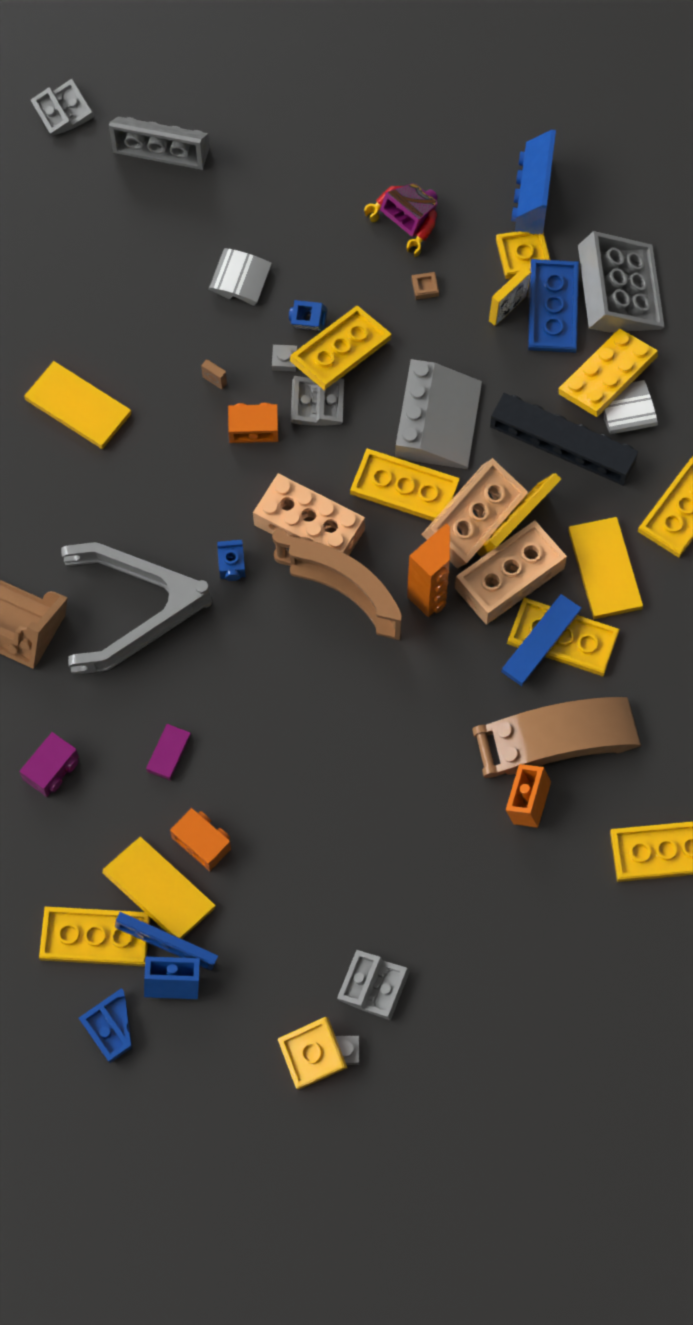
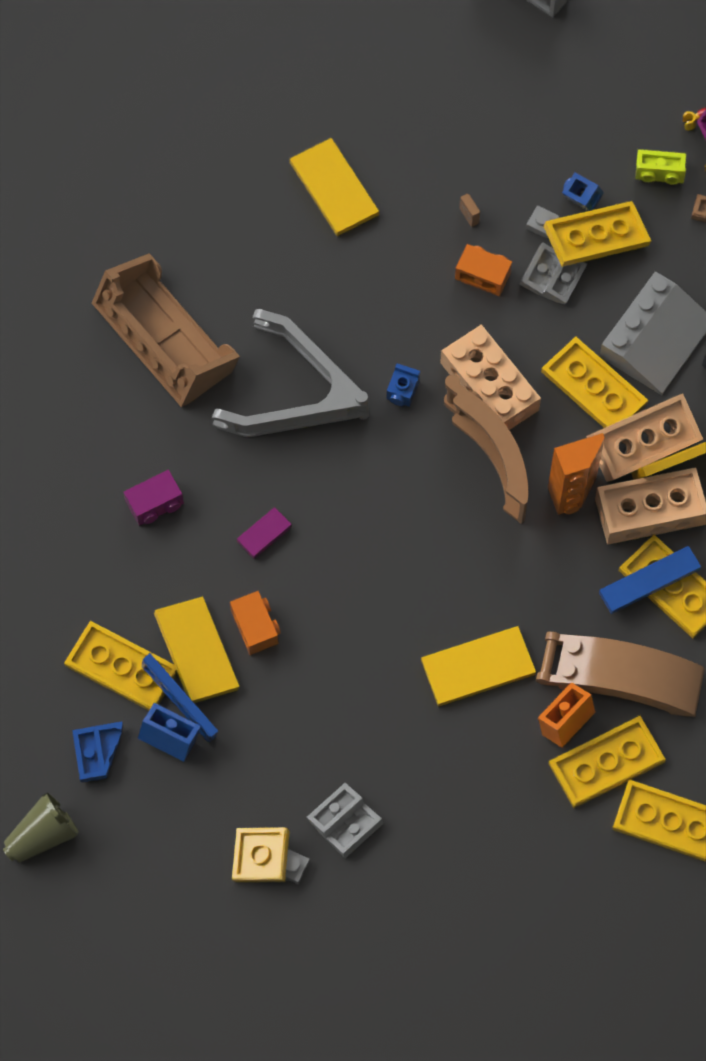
camera: 25 degrees right, 0 degrees up
(94, 1127) = (40, 830): none -> olive cone
(240, 276) = (537, 129): light grey slope -> none
(367, 264) = (660, 166): none -> neon yellow bracket
(424, 787) = (478, 666): none -> yellow tile
(582, 822) = (607, 761): none -> yellow tile

